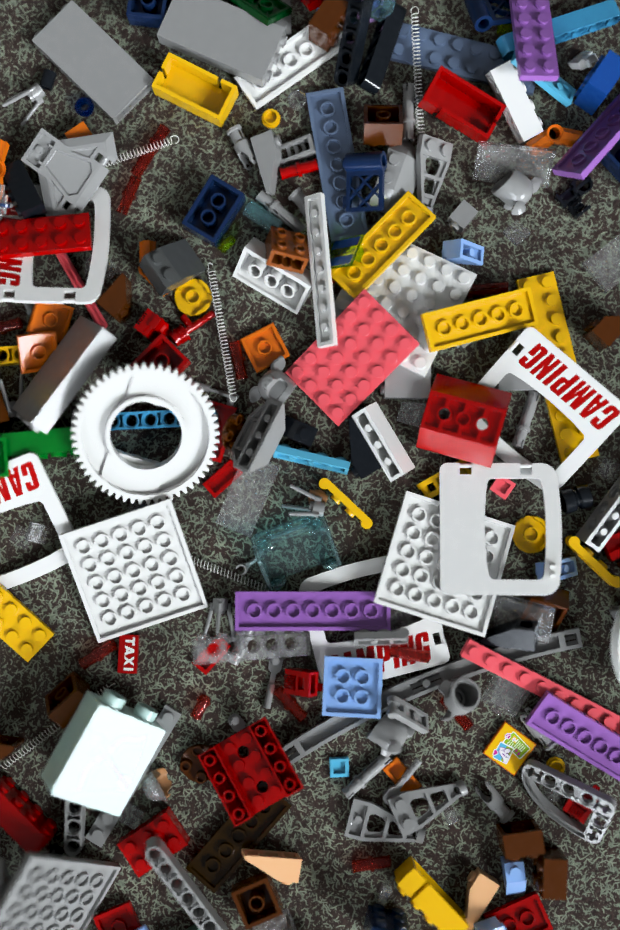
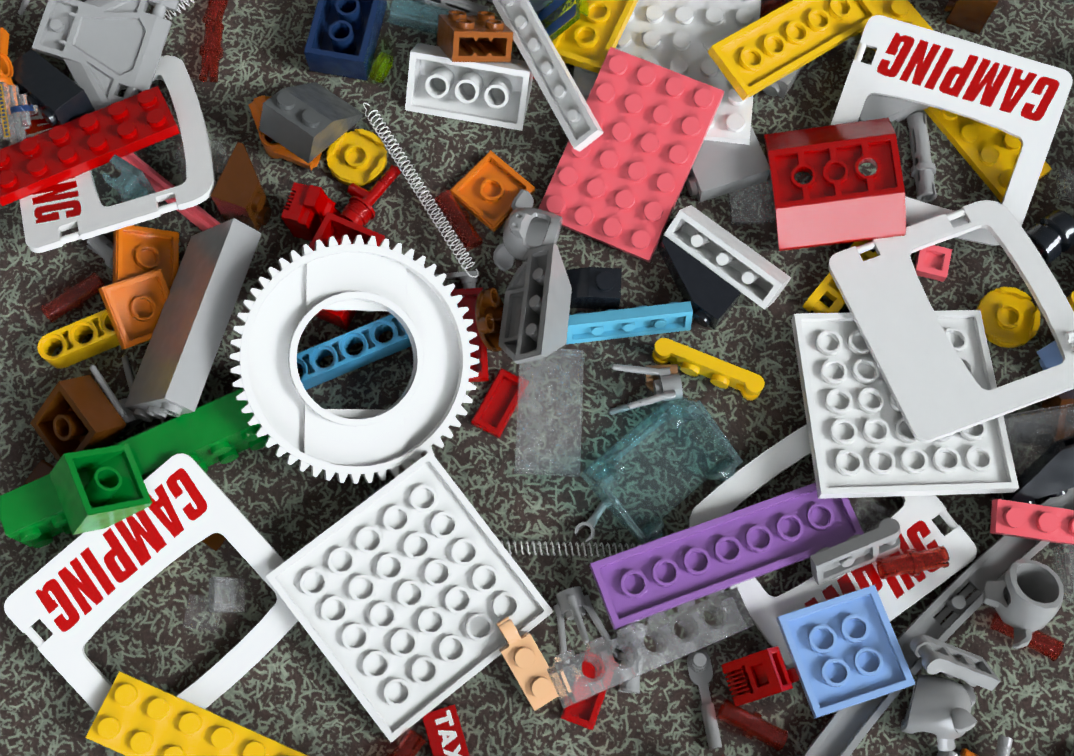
camera: 20 degrees left, 15 degrees down
(54, 275) = (131, 182): none -> clear light blue hinge
(183, 628) = (527, 665): none -> light nougat plate

